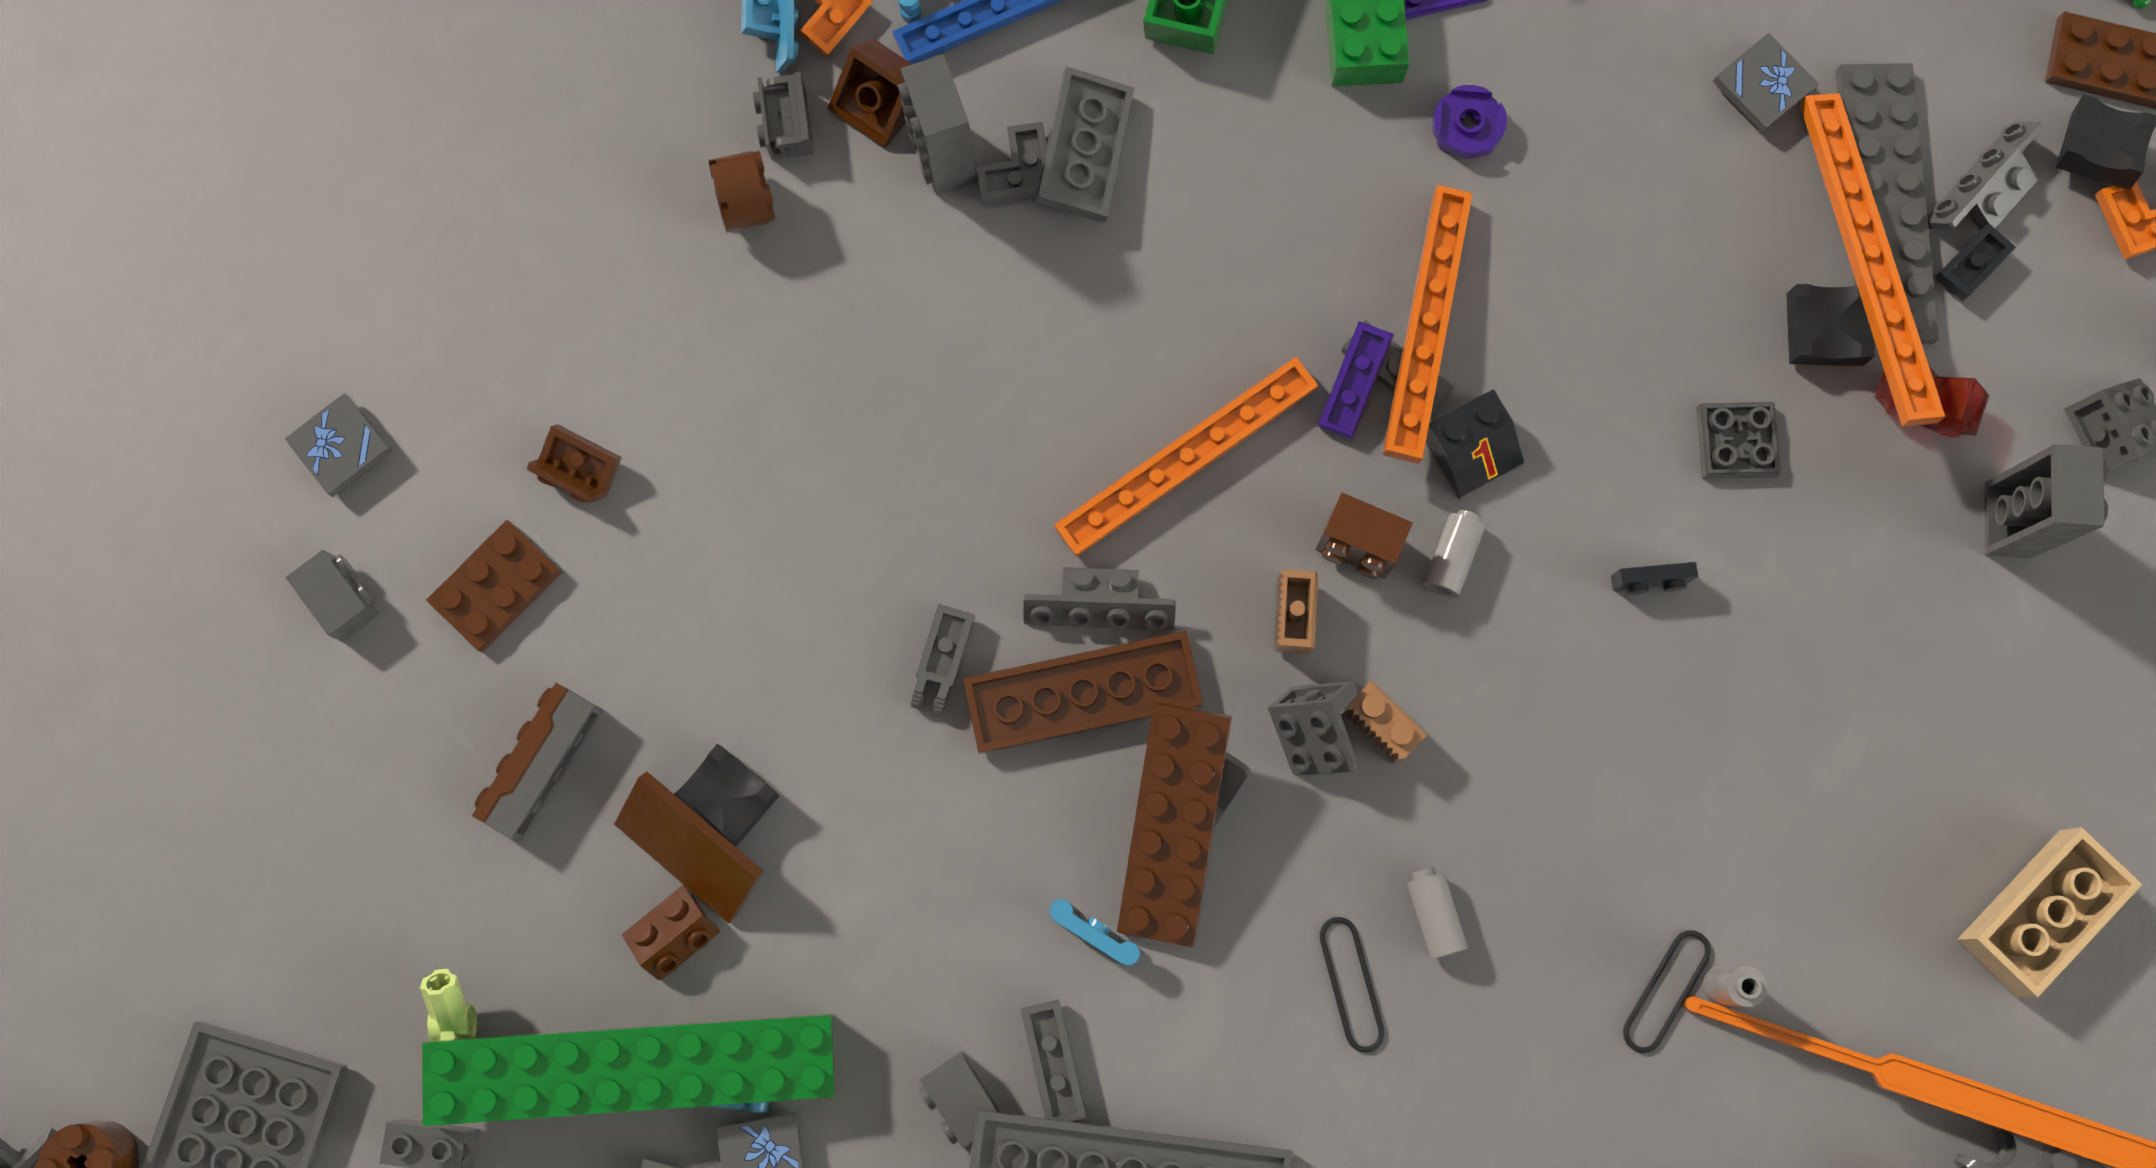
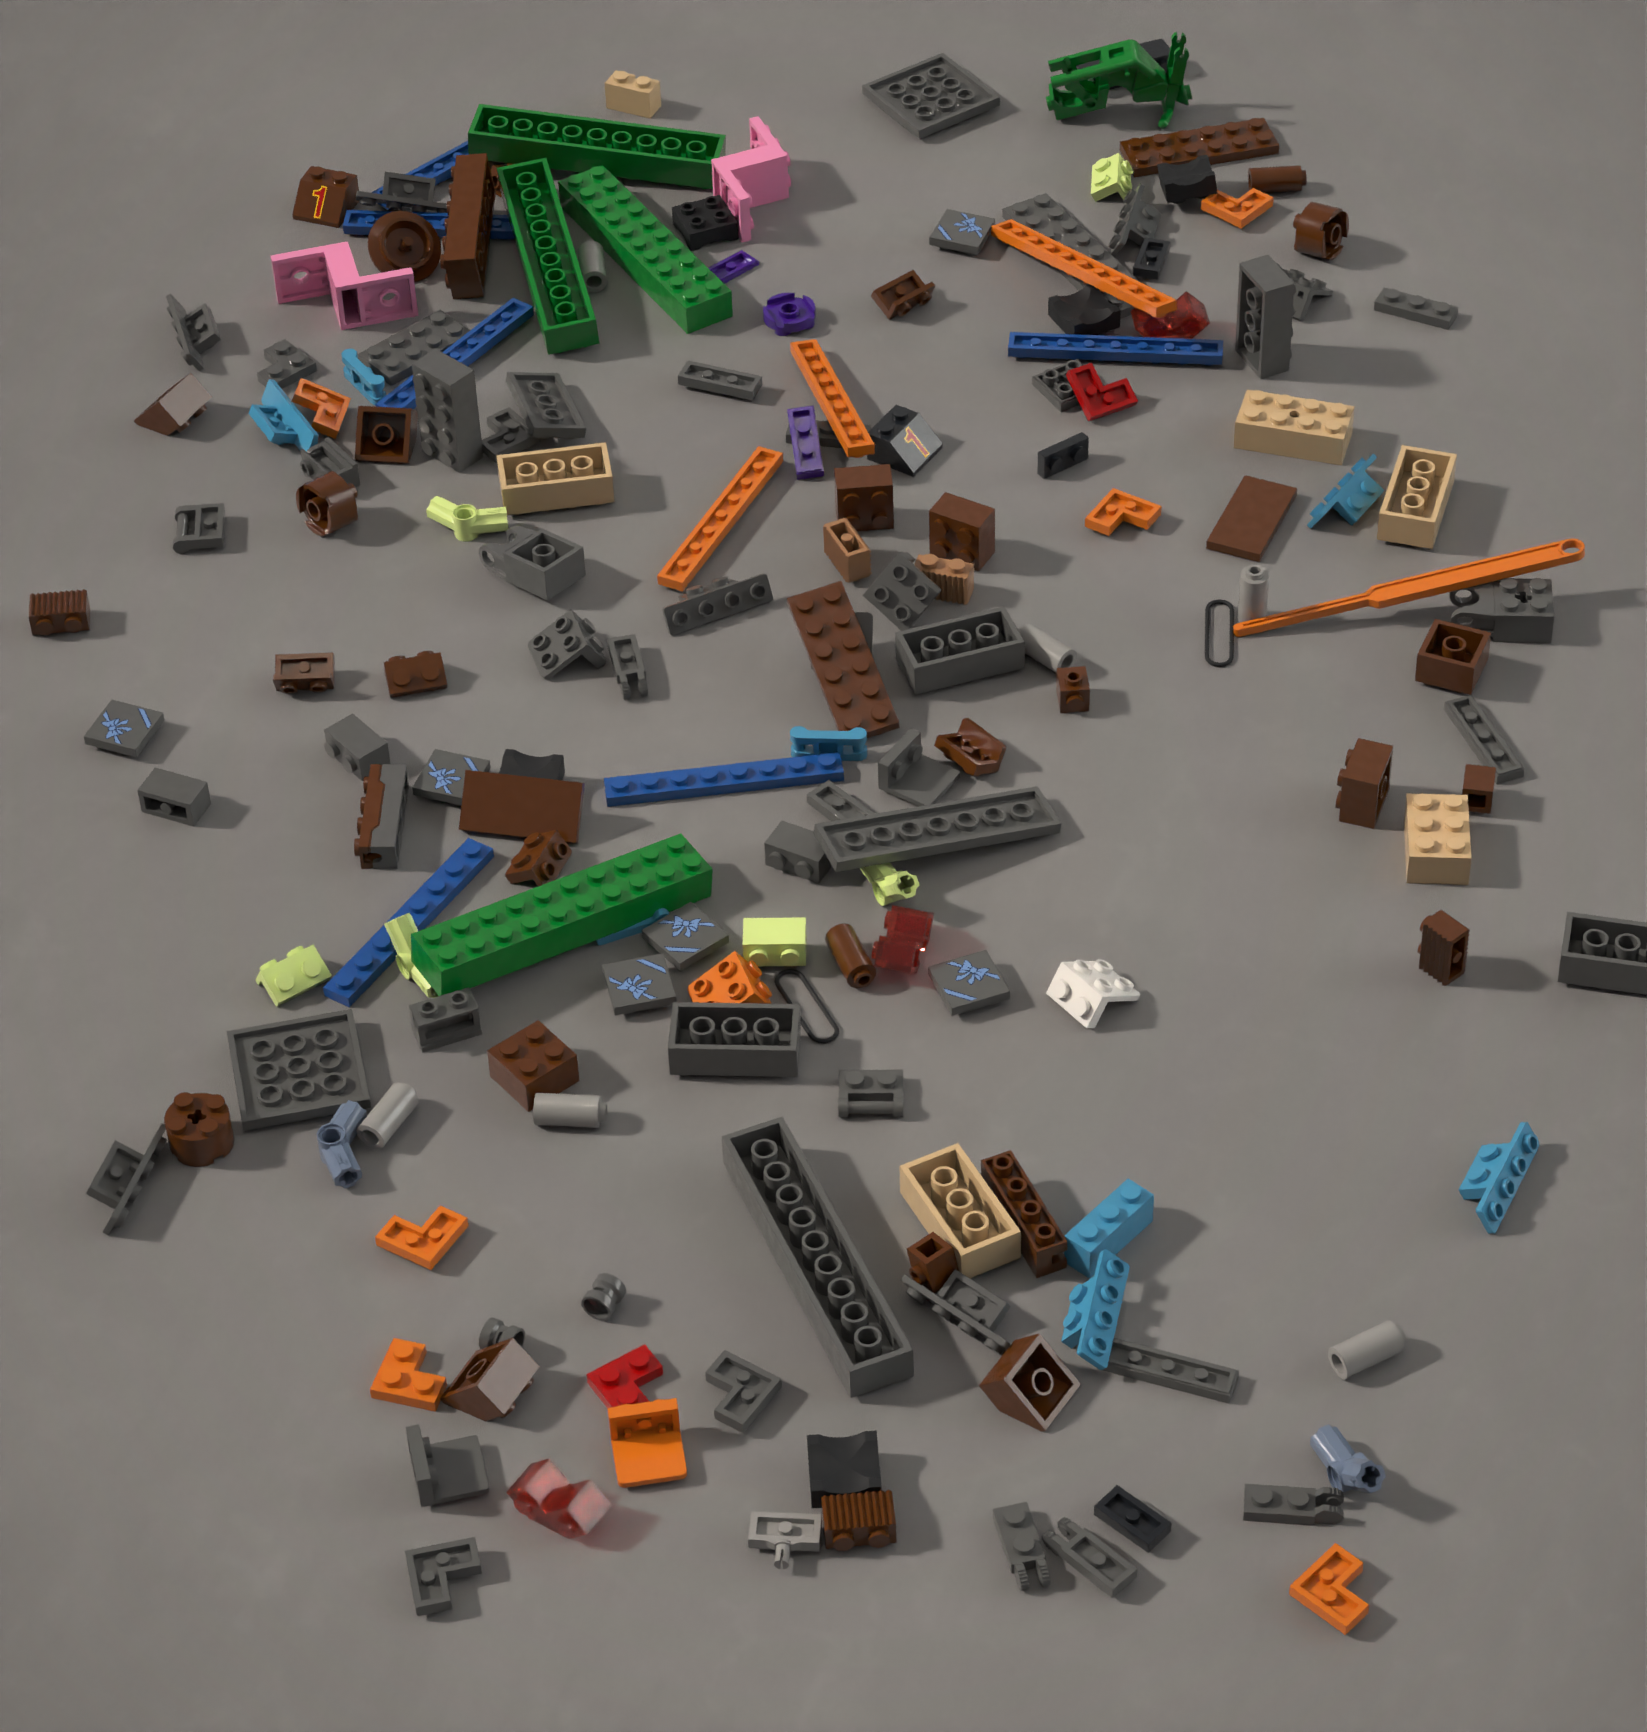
camera: 30 degrees left, 35 degrees down
(313, 963) = (293, 975): none -> yellowish green bracket
(363, 206) = (59, 612): none -> reddish brown brick
(486, 942) = (423, 906): none -> blue plate
(494, 586) = (286, 755): reddish brown plate -> none
(567, 627) = (355, 746): none -> dark grey brick
(600, 143) = (208, 527): none -> dark grey plate
(646, 736) = (445, 775): none -> dark grey tile
(697, 534) = (415, 674): none -> reddish brown bracket
(889, 586) = (565, 642): none -> dark grey bracket
(908, 309) = (466, 519): none -> yellowish green piece
(924, 410) = (535, 561): none -> dark grey brick
(950, 912) = (723, 779): none -> blue plate
(994, 269) = (555, 478): none -> tan brick
(1081, 692) = (728, 647): reddish brown plate -> none
(1168, 1049) = (912, 775): none -> dark grey bracket
(1251, 1041) = (972, 748): none -> reddish brown bracket
(1318, 203) = (720, 380): none -> dark grey plate
(1331, 869) = (960, 650): none -> dark grey brick
(1367, 980) = (1040, 734): black piece -> none
(1428, 1007) = (1072, 689): none -> reddish brown brick
(1446, 664) = (962, 530): none -> reddish brown brick
(1454, 554) = (927, 489): light grey brick -> none
(1624, 166) = (902, 295): none -> reddish brown bracket
(1671, 708) = (1120, 507): none -> orange plate
(1756, 497) = (1099, 399): none -> red plate
(1824, 813) = (1251, 518): none -> reddish brown tile
(1834, 409) = (1115, 348): none -> blue plate
(1969, 847) = (1353, 497): none -> dark azure bracket
(1971, 688) = (1294, 427): none -> tan brick
(2011, 78) = (1111, 176): none -> yellowish green bracket

